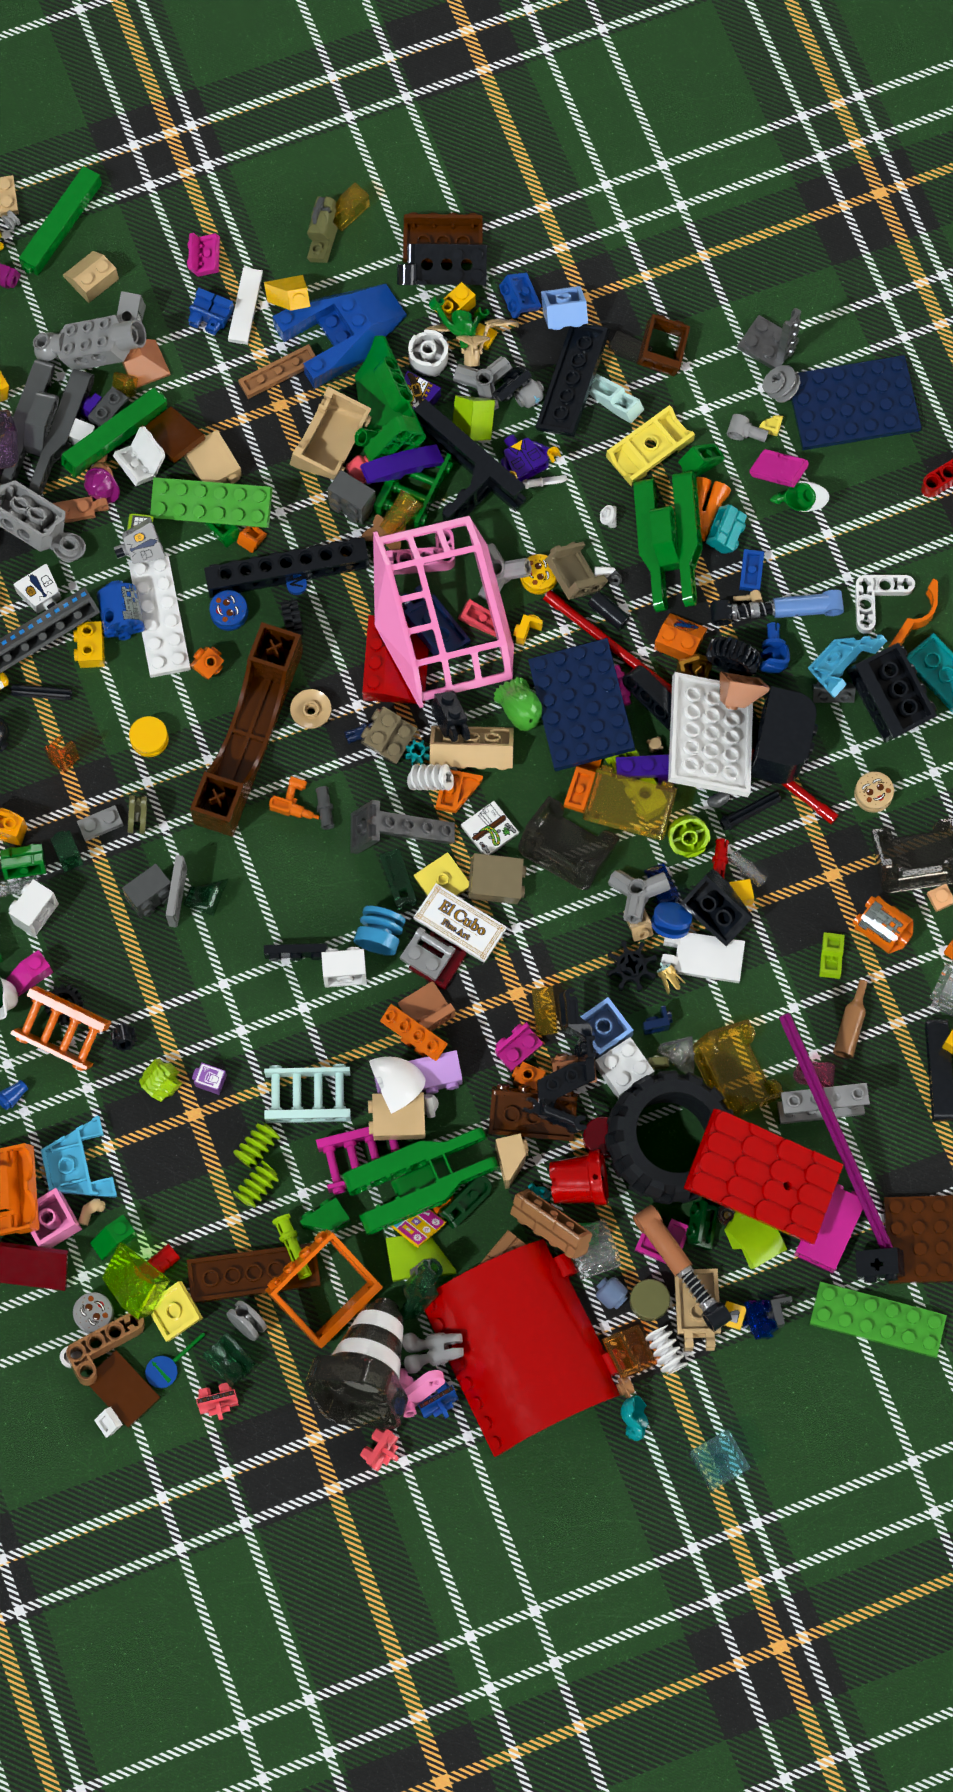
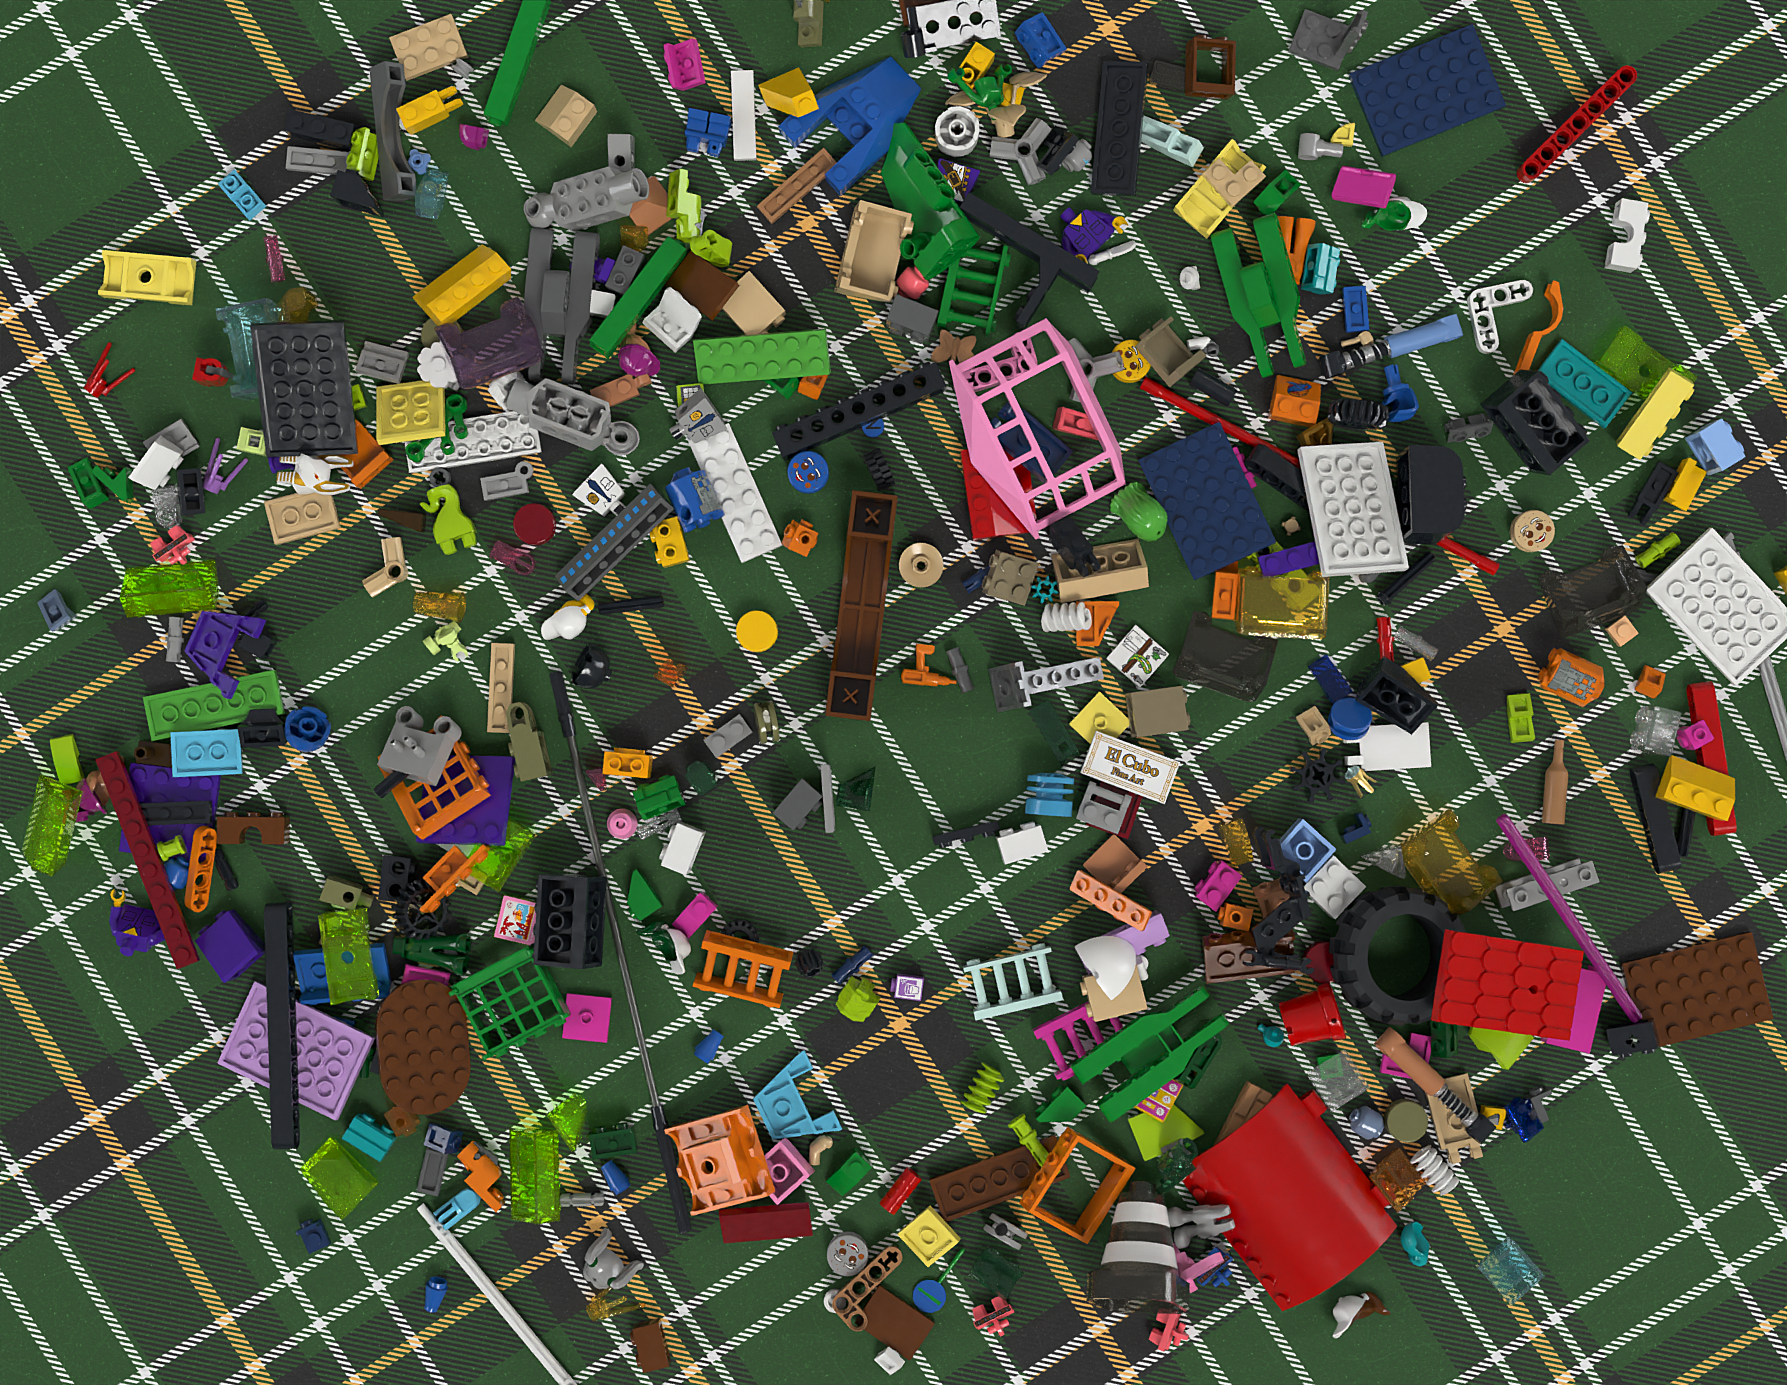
camera: 15 degrees left, 15 degrees up
(134, 1282) = (882, 1218): clear neon green slope -> none
(163, 1049) = (852, 965): none -> dark blue pin
(174, 369) = (684, 207): none -> lime plate
(191, 405) = (712, 248): none -> lime piece
(256, 1144) = (973, 1046): lime piece -> none
(400, 513) = (969, 327): clear yellow plant -> none
(401, 463) = (959, 271): dark purple slope -> none
(474, 416) = (1022, 197): lime slope -> none
(511, 1156) = (1237, 1007): tan slope -> none
(527, 622) = (1125, 429): yellow bracket -> none
(551, 1224) = (1294, 1070): medium nougat brick -> none
(563, 1468) = (1354, 1307): none -> white hair
(564, 307) = (1095, 48): light blue brick -> none
(625, 1386) = (1402, 1219): medium nougat plate -> none
(636, 901) = (1309, 709): light grey piece -> none
(659, 1062) = (1365, 872): olive tile -> none
(662, 443) = (1230, 186): none -> tan plate
(688, 836) = (1349, 623): lime cylinder -> none
(740, 690) = (1374, 451): nougat slope -> none
(781, 383) = (1347, 86): light grey piece -> none
(838, 656) = (1468, 391): medium azure wing -> none
(878, 1319) = (1638, 1090): bright green plate -> none

